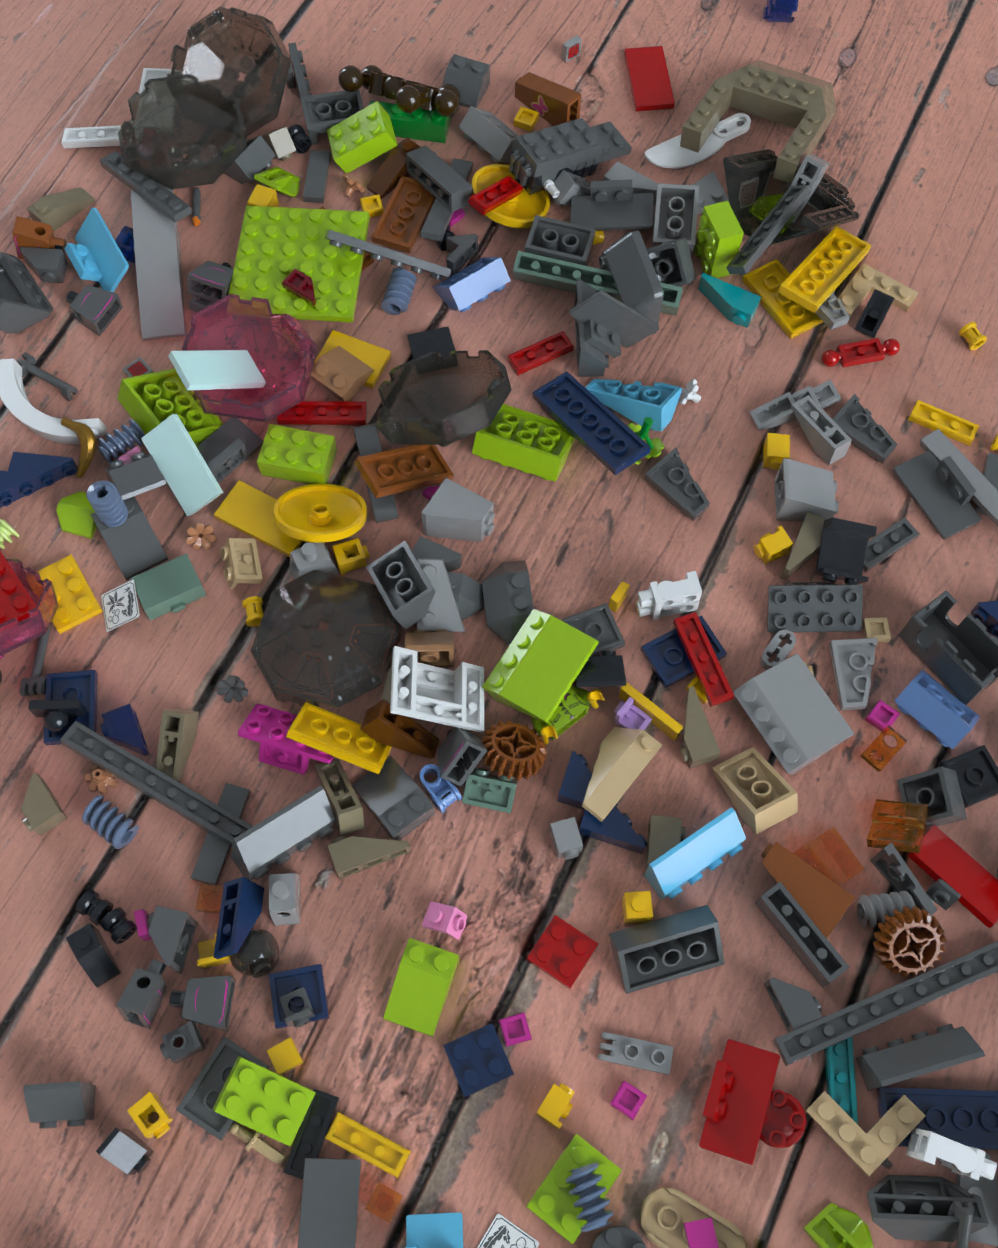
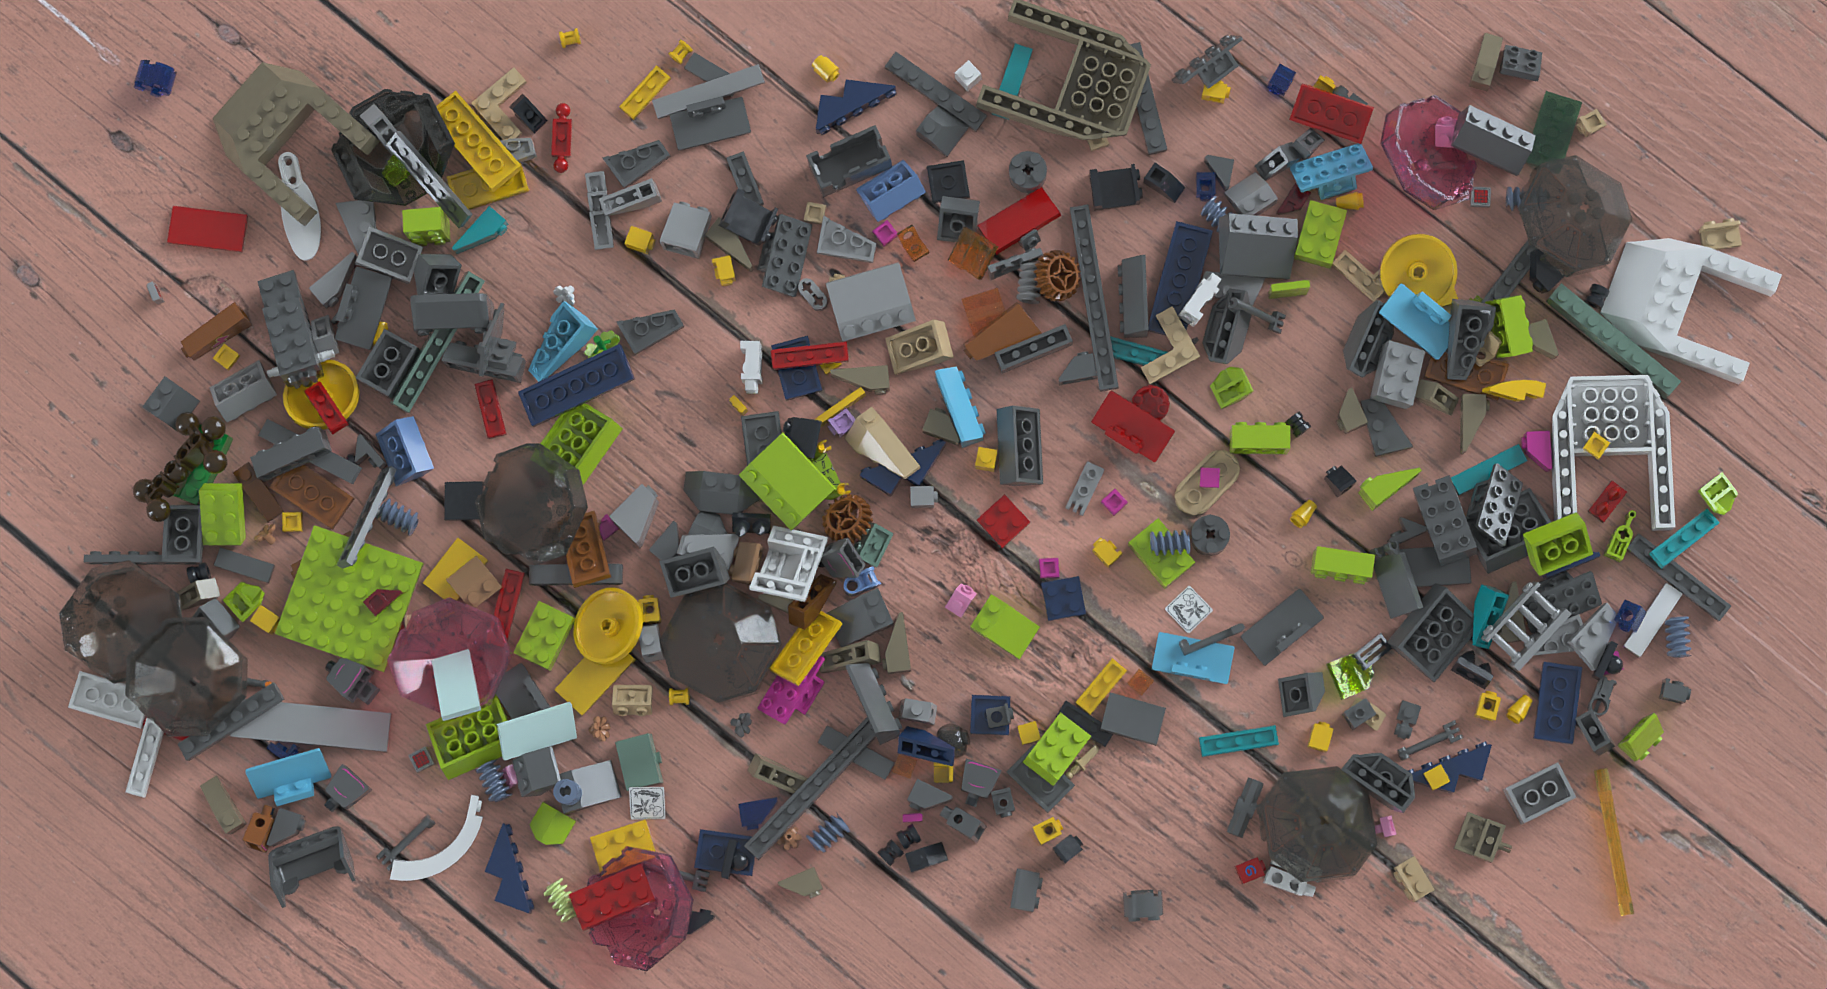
camera: 65 degrees left, 15 degrees up
(87, 443) = (490, 808): pearl gold piece -> none
(480, 641) = (751, 523): none -> black tile

